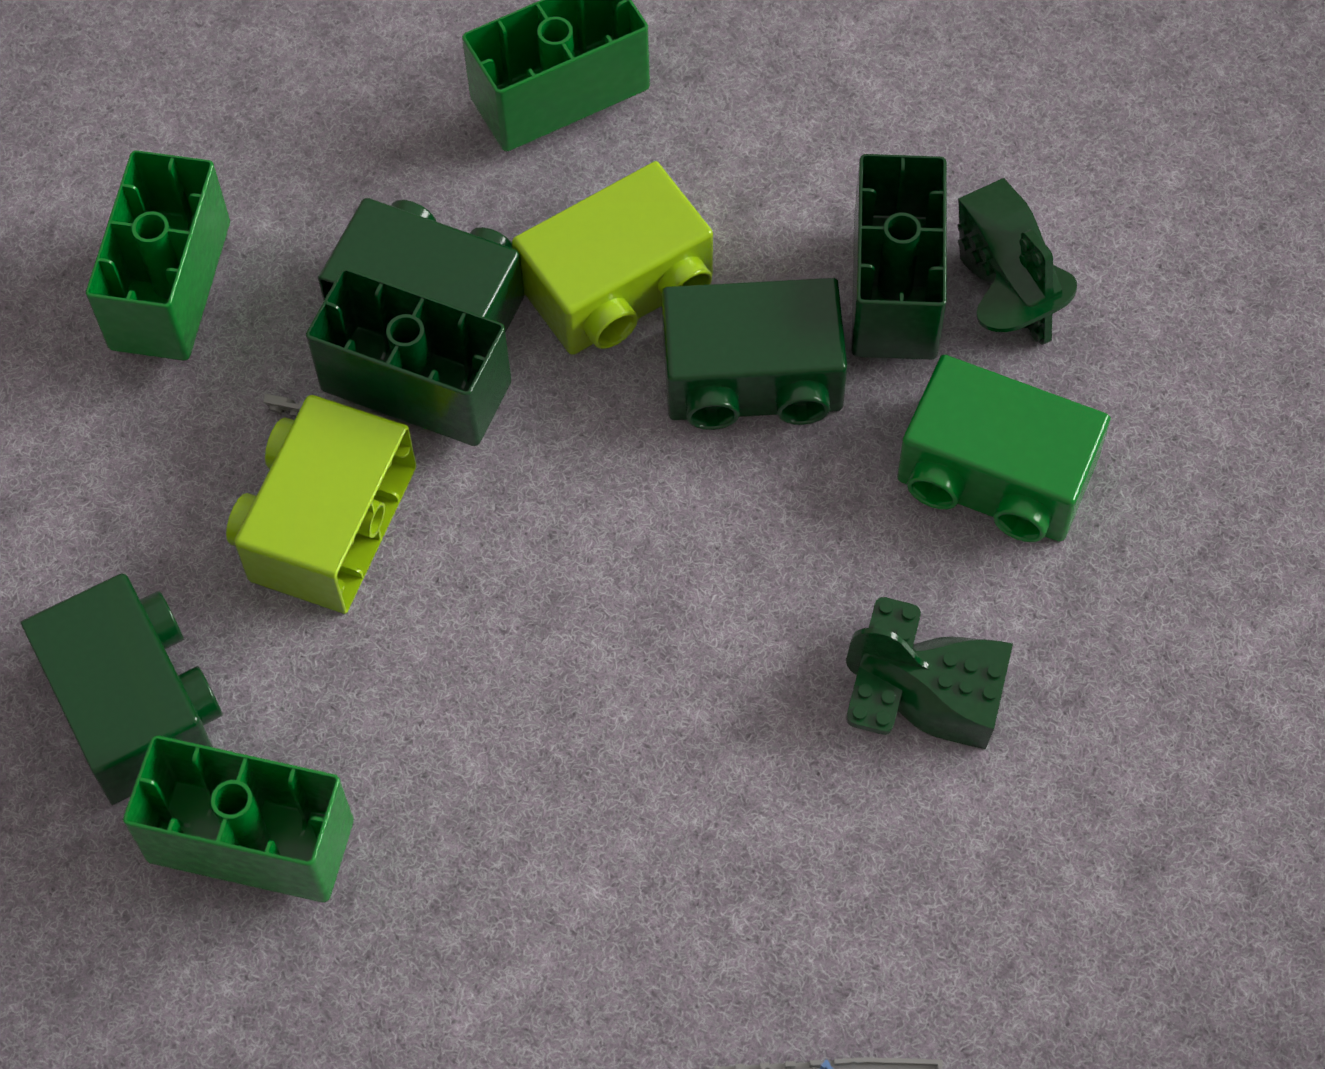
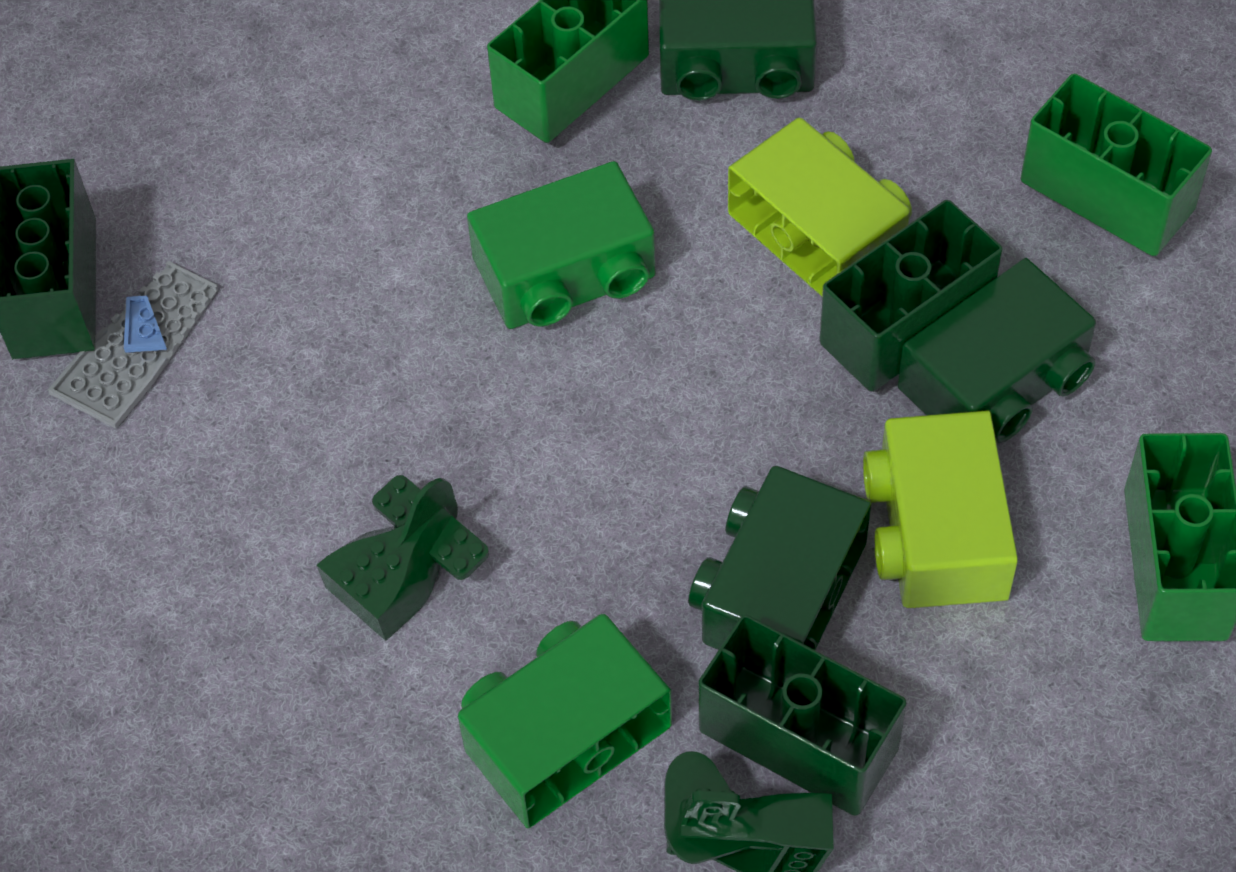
camera: 120 degrees right, 5 degrees down
(496, 712) = (563, 246): none -> green piece

